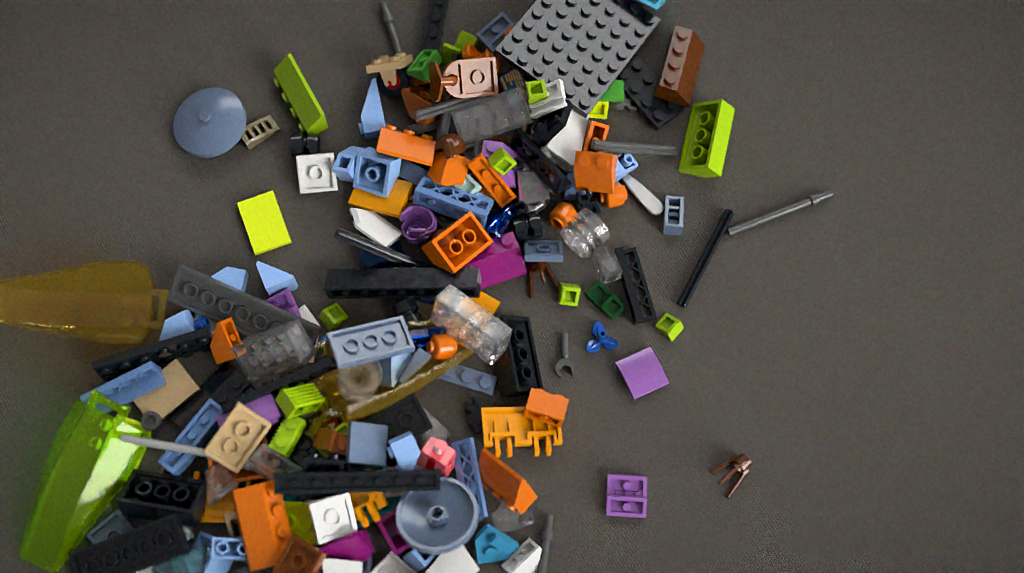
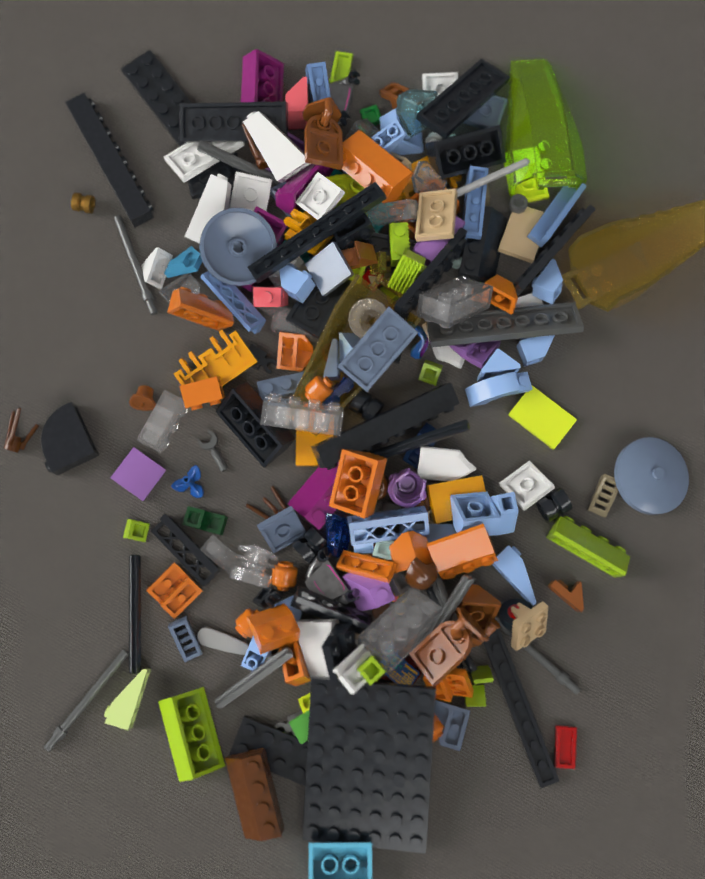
camera: 155 degrees right, 5 degrees up
(201, 322) = (531, 297): blue plate -> none
(292, 263) = (498, 387): none -> light blue arch
(339, 72) = (573, 597): none -> dark orange slope
(420, 66) = (497, 647): bright green slope -> none
(443, 402) = (293, 351): none -> orange slope
(501, 161) = (366, 585): lime slope -> none
(569, 294) = (240, 508): lime slope -> none
(595, 405) = (162, 422): none -> clear brick
(601, 436) = (143, 399): none -> dark orange piece
(626, 495) = (99, 365): medium lavender slope -> none
(662, 258) = (174, 590): none -> orange slope
(690, 437) = (66, 440): none -> black brick
(747, 190) = (126, 705): none -> yellowish green slope

